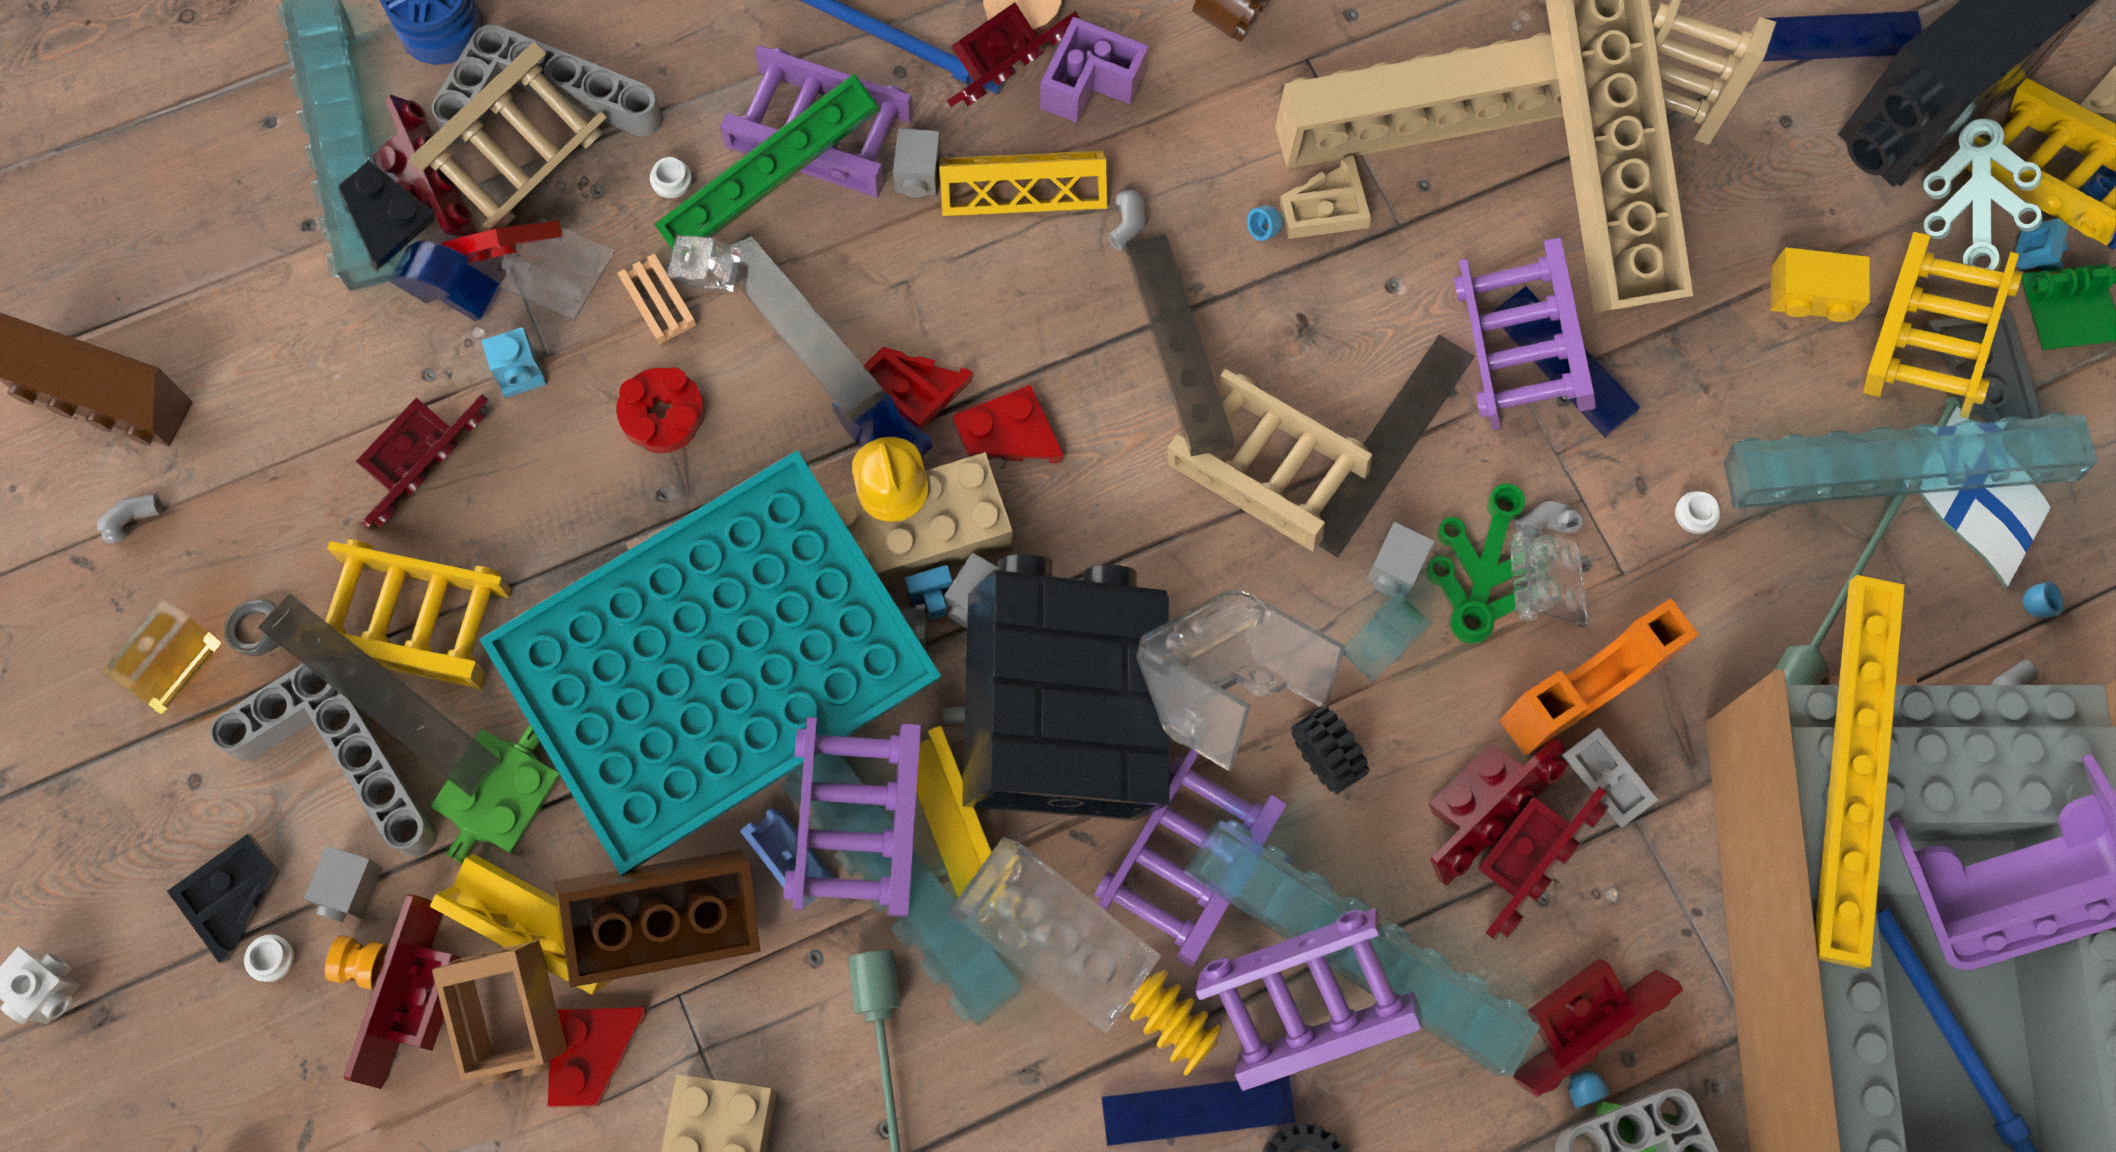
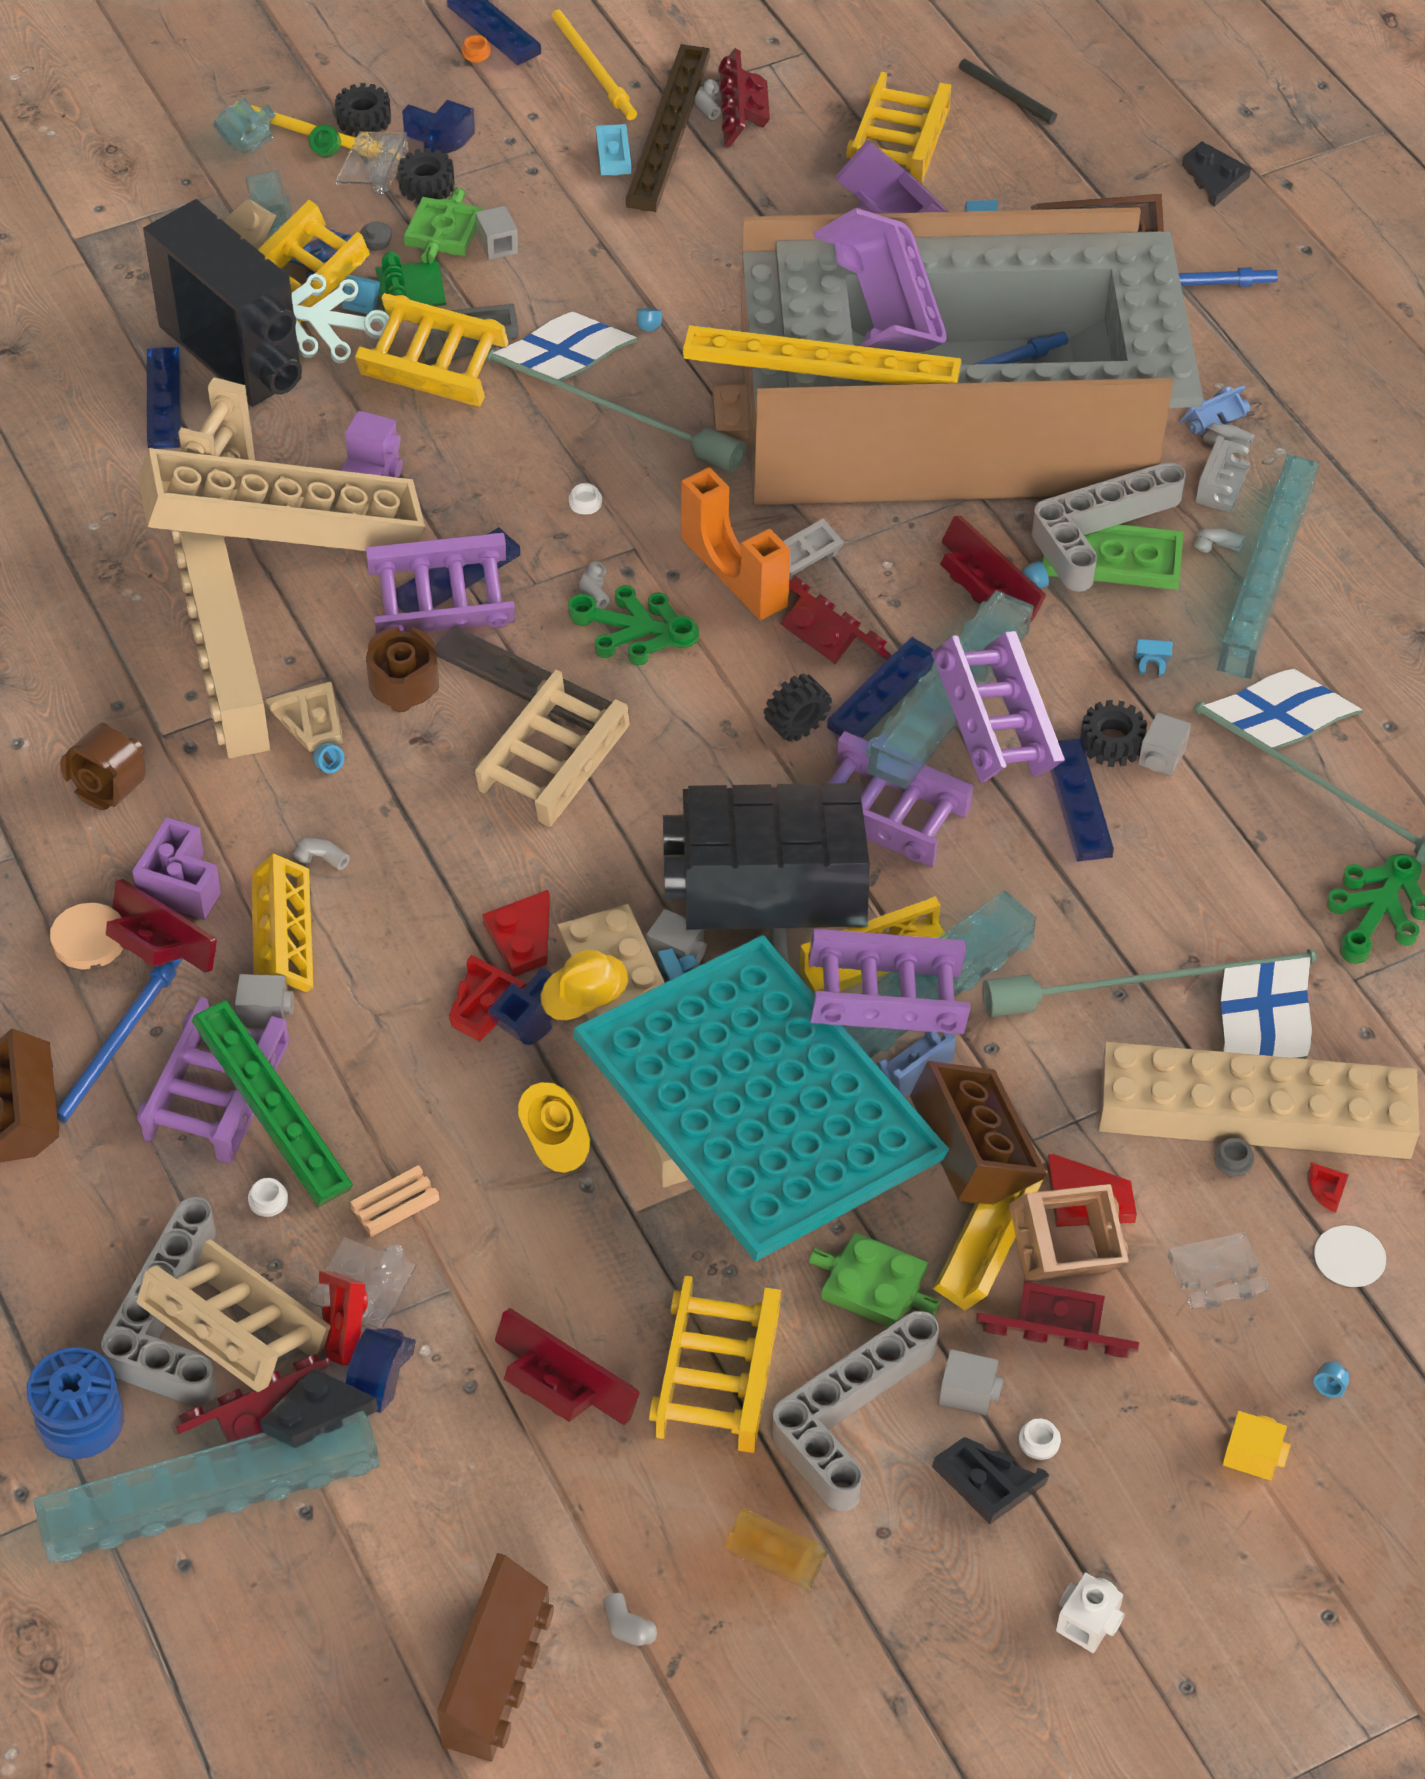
camera: 90 degrees left, 20 degrees down
(234, 620) = (732, 1471): dark grey piece -> none
(354, 961) = (1036, 1365): light orange wheel -> none
(380, 695) = (801, 1355): clear smoke tile -> none
(513, 362) = (465, 1300): medium azure brick -> none
(656, 386) = (501, 1169): red plate -> none
(704, 263) = (367, 1151): clear brick -> none
(729, 456) = (554, 1126): none -> yellow piece
(805, 331) = (433, 1068): clear smoke tile -> none
(1054, 934) = (964, 861): clear brick -> none
(1174, 1021) = (1016, 805): yellow piece -> none
(1179, 346) = (447, 806): clear smoke tile -> none
(1224, 644) = (718, 749): clear windscreen -> none
(1377, 868) = (883, 690): none -> clear blue plate
(1386, 637) = (699, 672): clear light blue brick -> none
(1393, 293) = (402, 668): none -> reddish brown brick
(1399, 561) = (635, 671): light grey brick -> none
(1531, 850) = (868, 593): dark red bracket -> none
(1551, 576) = (628, 577): clear hinge -> none
(1733, 256) = (373, 446): none -> medium lavender brick
(1820, 284) = (399, 403): yellow brick -> none
(1909, 460) = (547, 377): clear light blue brick -> none

